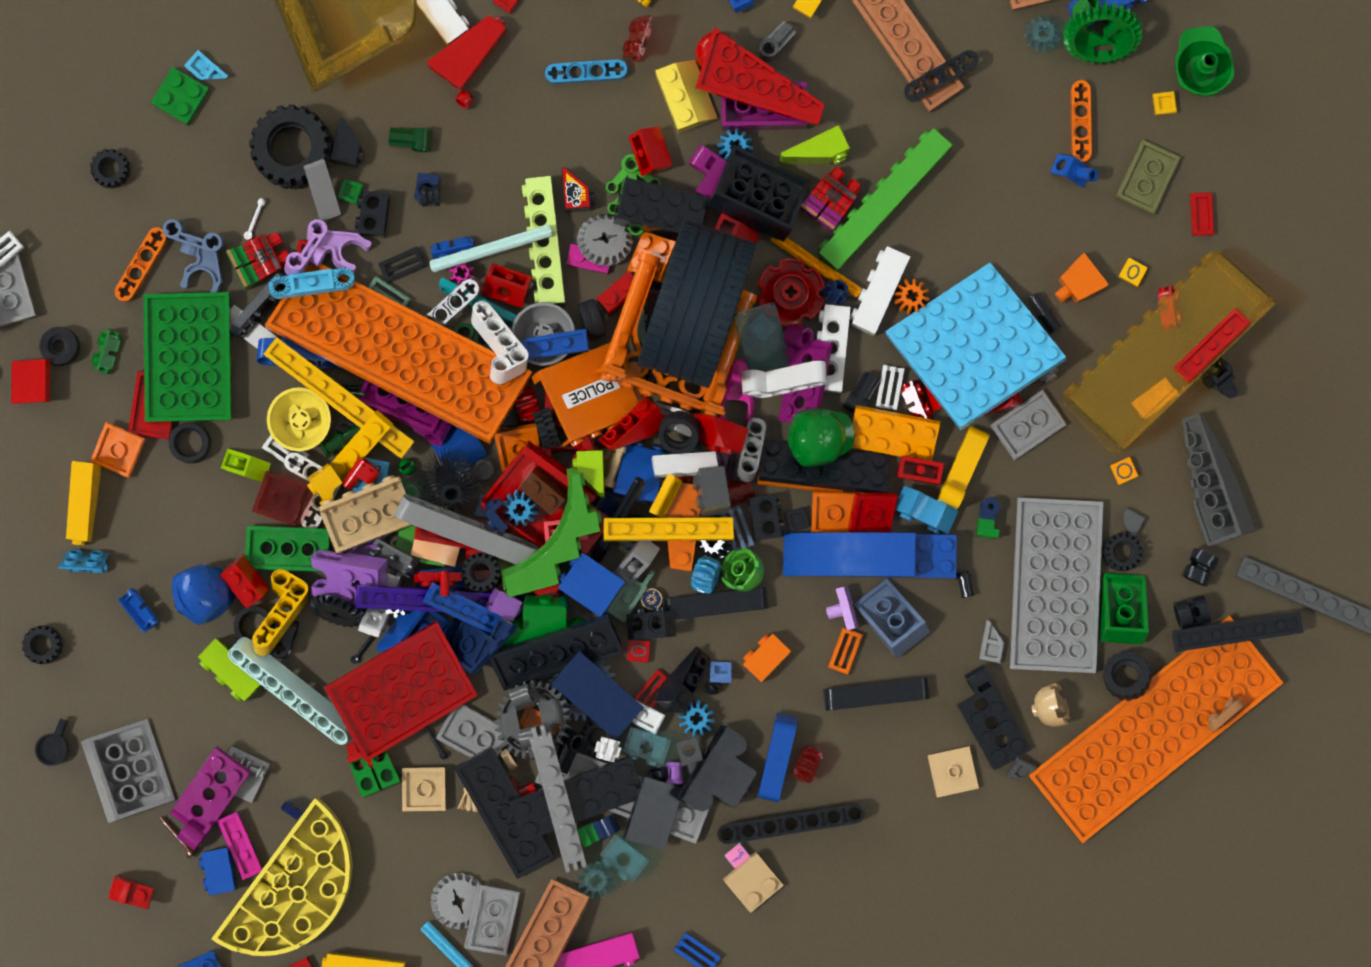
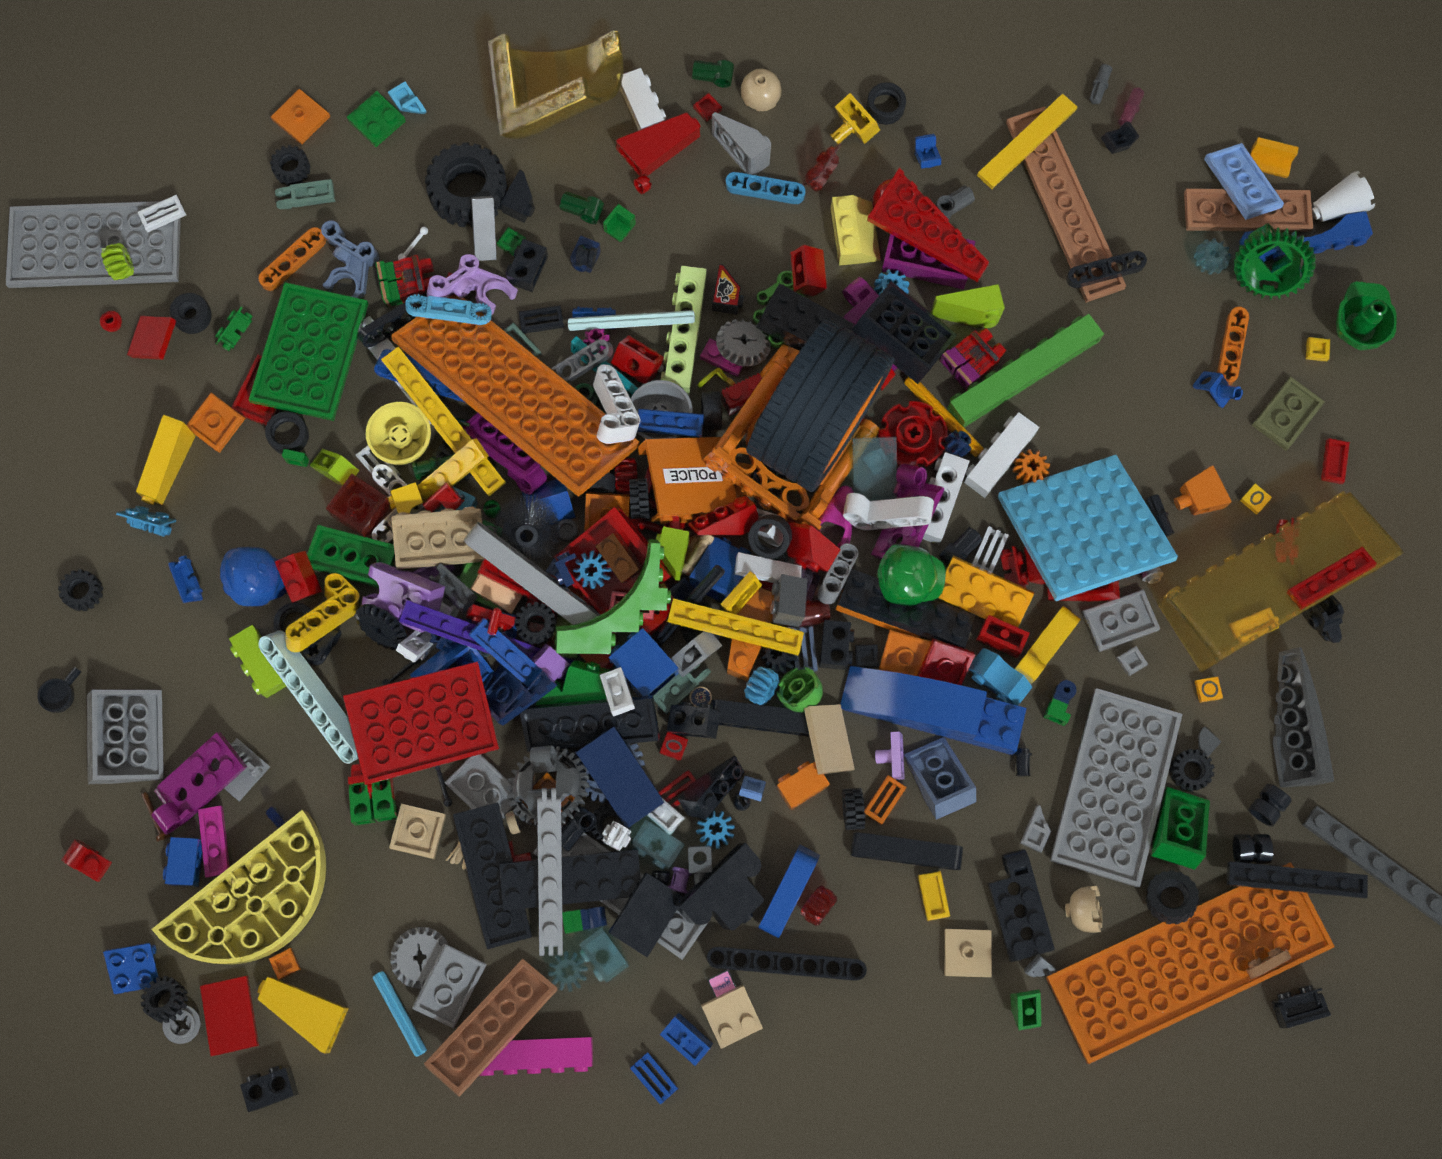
camera: 10 degrees right, 10 degrees down
(103, 112) = (300, 116): none -> orange plate
(135, 194) = (306, 194): none -> sand green hinge
(205, 465) = (295, 458): none -> green tile
(337, 937) = (284, 964): none -> orange tile
(452, 147) = (619, 223): none -> green panel
(556, 36) = (742, 143): none -> light grey slope
(574, 620) = (617, 691): none -> white plate
(581, 282) = (719, 373): none -> neon yellow piece
(717, 912) = (686, 1039): none -> blue hinge
(780, 609) = (829, 739): none -> tan tile
(818, 668) = (853, 808): none -> black tyre
(910, 727) = (933, 896): none -> yellow tile
(1016, 810) = (1026, 1009): none -> green slope
(1046, 461) = (1132, 661): none -> light grey tile
(1262, 745) = (1300, 1007): none -> black hinge

